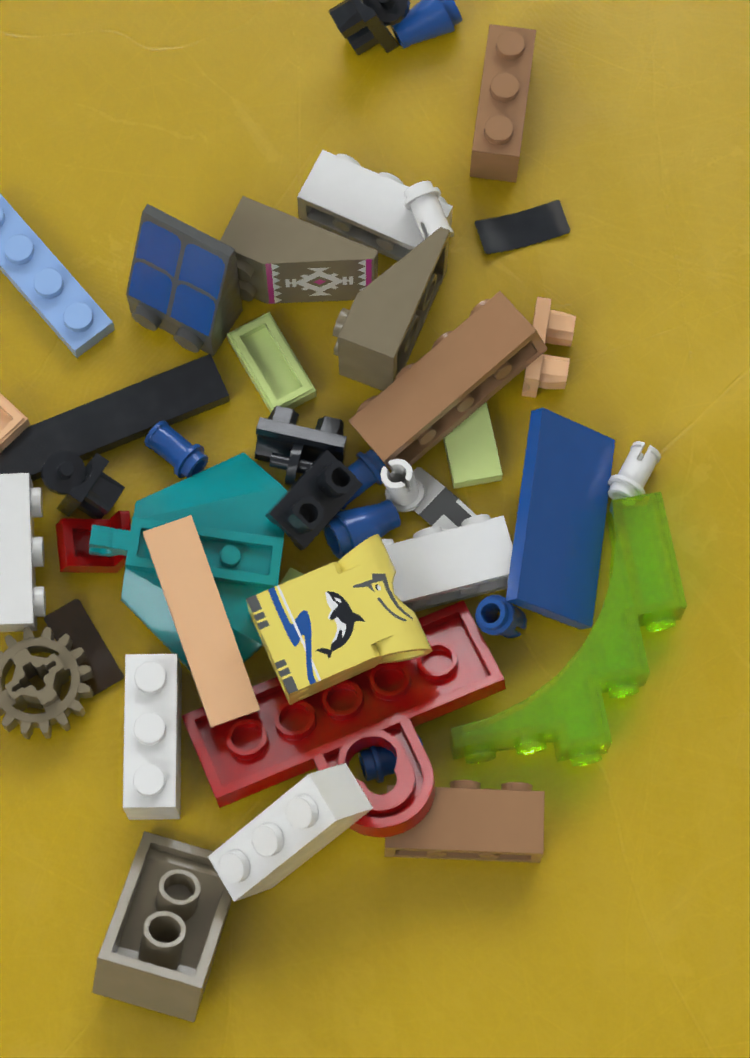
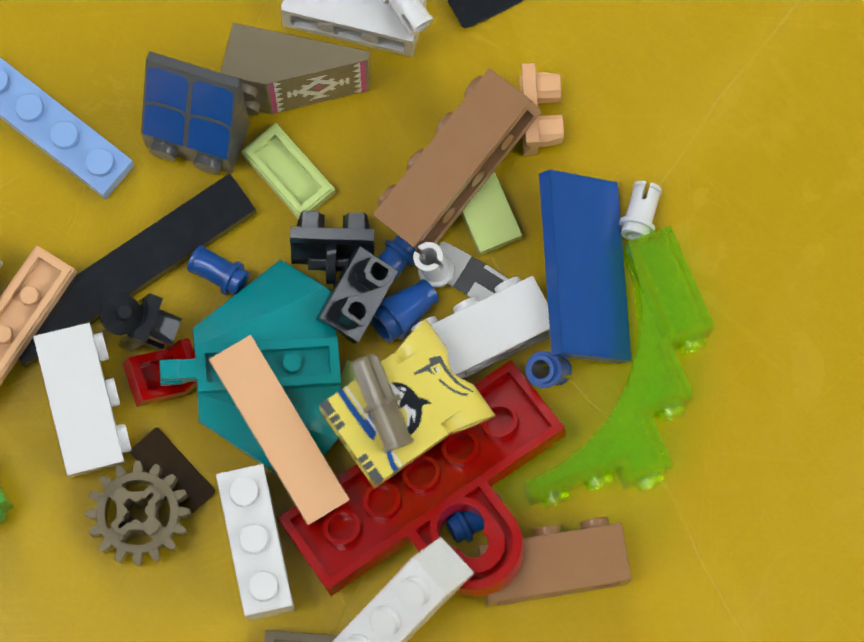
camera: 15 degrees left, 5 degrees up
(311, 609) = (381, 402): none -> dark tan axle
(390, 313) = (388, 108): dark tan slope -> none

